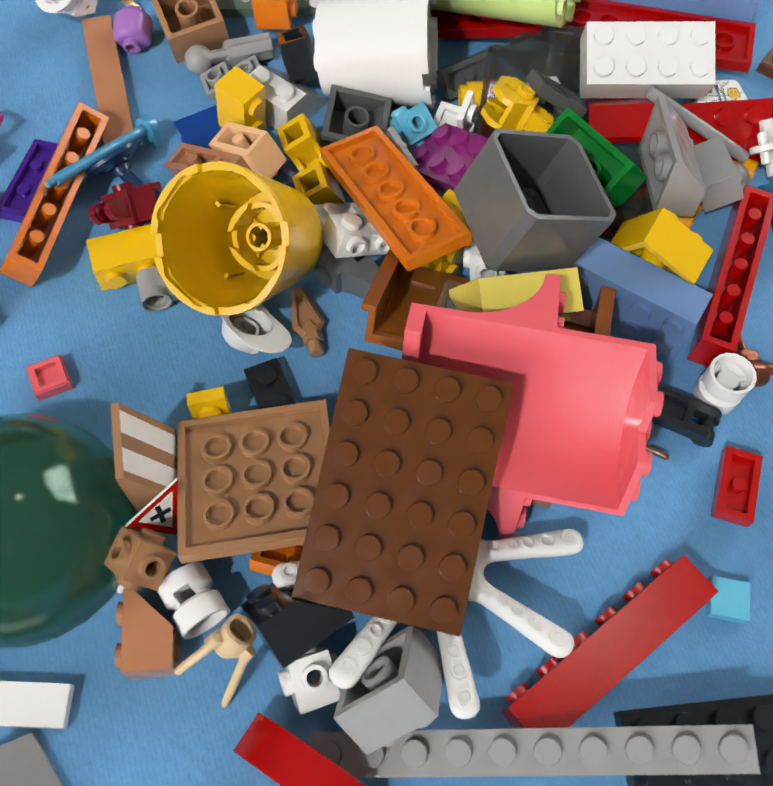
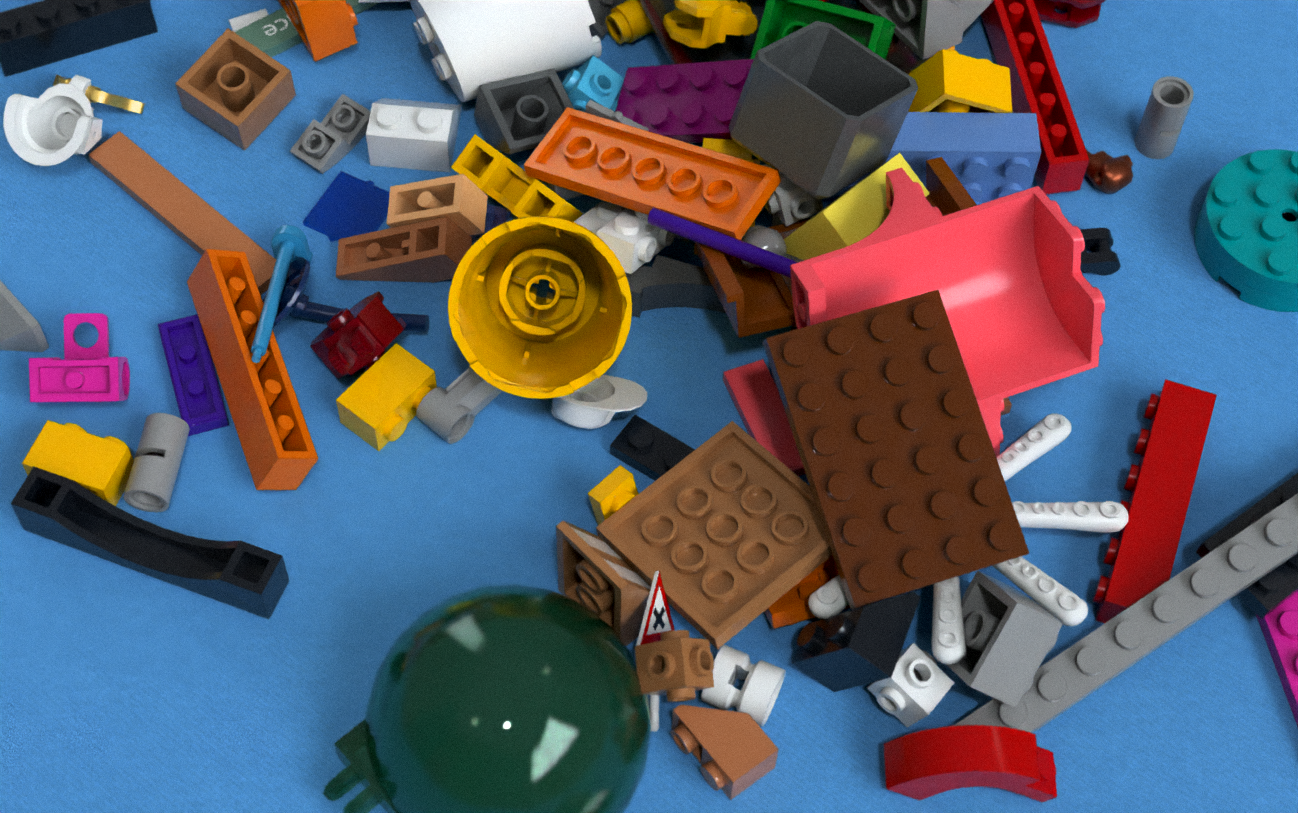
camera: 30 degrees left, 5 degrees down
(49, 377) = (403, 569): coral tile -> none
(132, 29) = (167, 134): medium lavender head -> none
(229, 642) = (823, 681): tan plant -> none
(233, 51) = (314, 101): light grey piece -> none
(240, 100) = (388, 157): yellow brick -> none
(297, 54) = (402, 68): black brick -> none
(307, 321) = (640, 364): medium nougat piece -> none
(394, 262) = (721, 242): none -> dark purple bar
(432, 285) = (766, 239): none -> light grey piece
(461, 117) = (638, 52): white bracket -> none
(725, 382) = (1096, 196): white wheel -> none
(731, 601) = (1231, 403): medium azure tile -> none
(737, 486) = (1168, 293): red plate -> none

